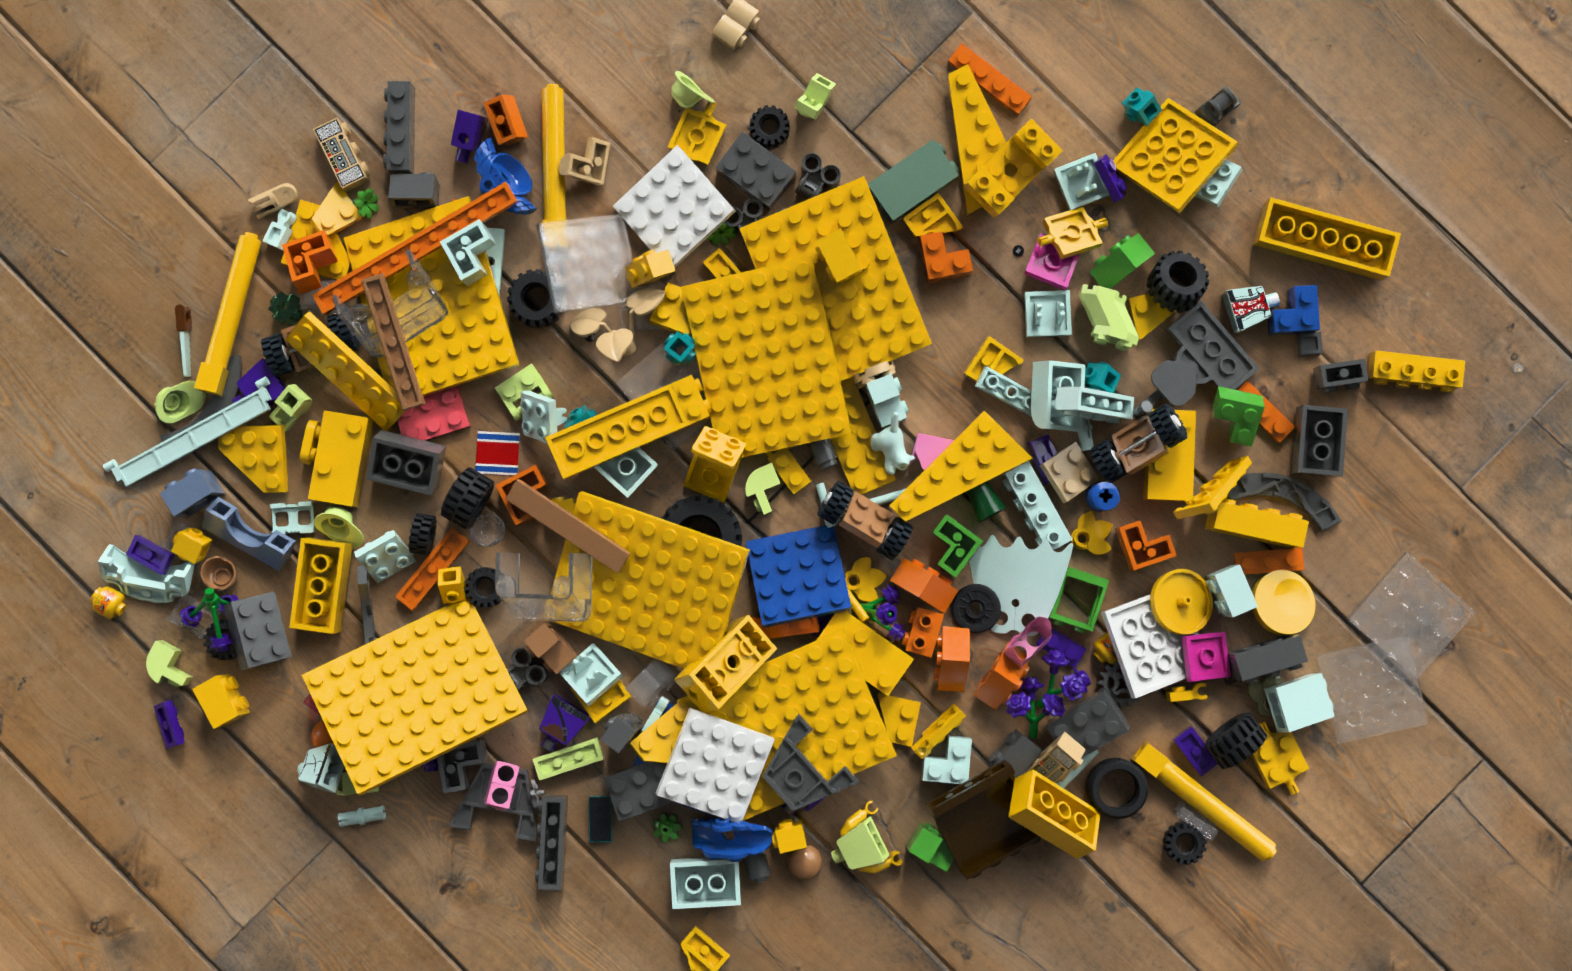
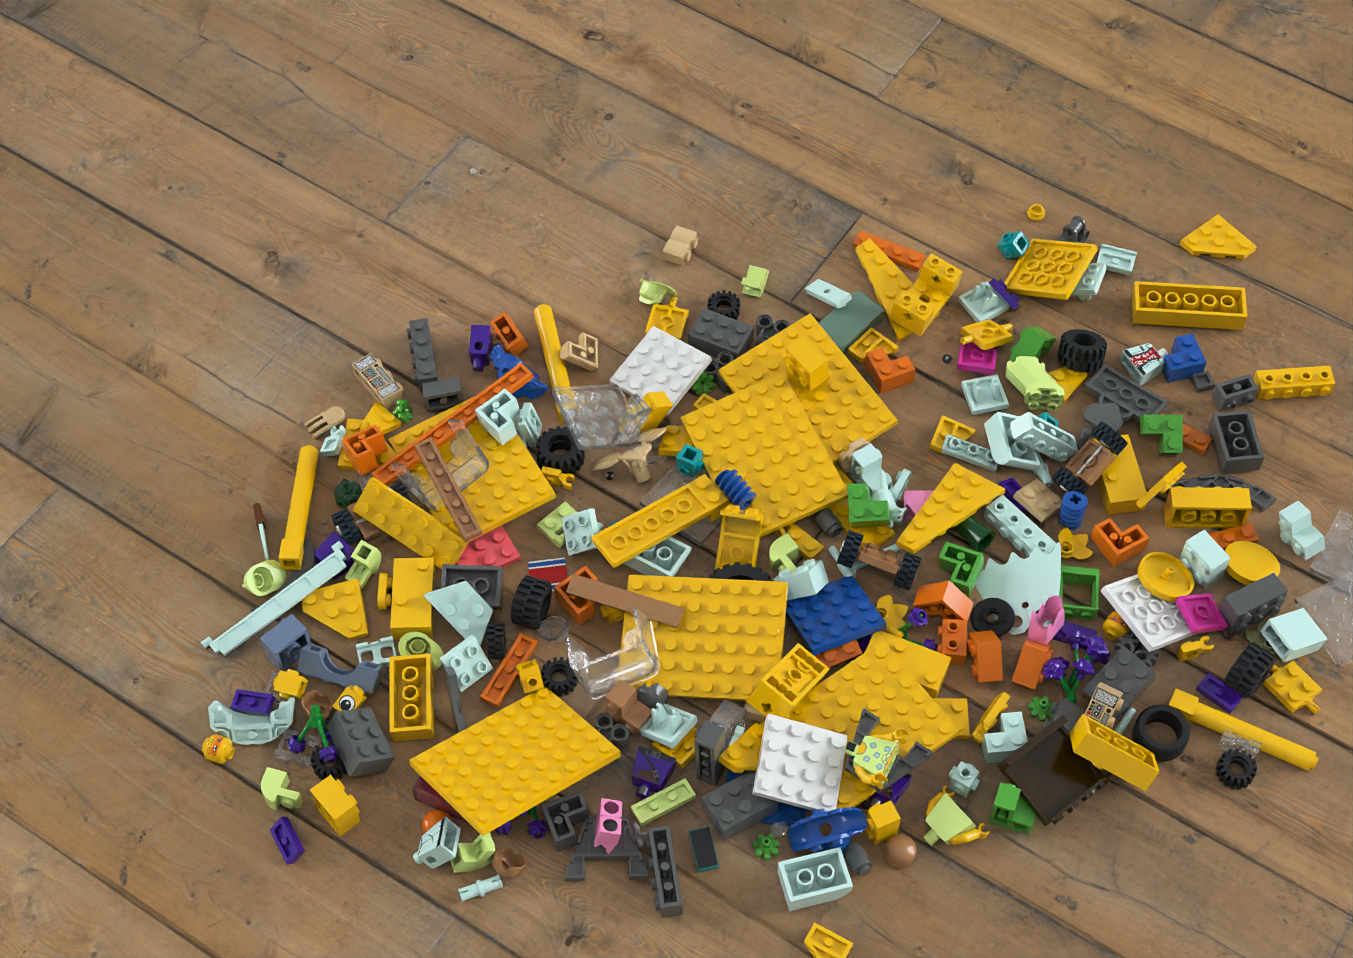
camera: 15 degrees left, 30 degrees down
(253, 577) = (350, 699): none -> yellow brick
(390, 492) = (462, 609): none -> light aqua wing
(393, 798) = (507, 863): none -> medium nougat hair
(507, 256) = (530, 424): none -> light aqua plate
(522, 329) = (557, 478): none -> yellow plate
(576, 639) = (652, 695): none -> dark grey hair
(628, 278) = (631, 418): none -> clear bracket
(682, 814) = (778, 829): none -> clear plate
(722, 404) = (735, 488): none -> blue piece
(773, 533) = (805, 580): none -> light aqua brick
(794, 782) = (876, 756): none -> torso
(862, 458) = (862, 511): none -> bright green brick
(889, 790) = (964, 779): none -> light aqua brick
(897, 137) = (828, 293): none -> light aqua tile
(921, 411) = (902, 480): none -> light aqua plate
(994, 725) = (1040, 707): none -> bright green plant
(1185, 57) = (1036, 212): none -> yellow plate
(1261, 149) = (1117, 259): none -> light aqua plate
(1351, 576) = (1299, 532): none -> light aqua brick
(1396, 143) = (1218, 240): none -> yellow plate

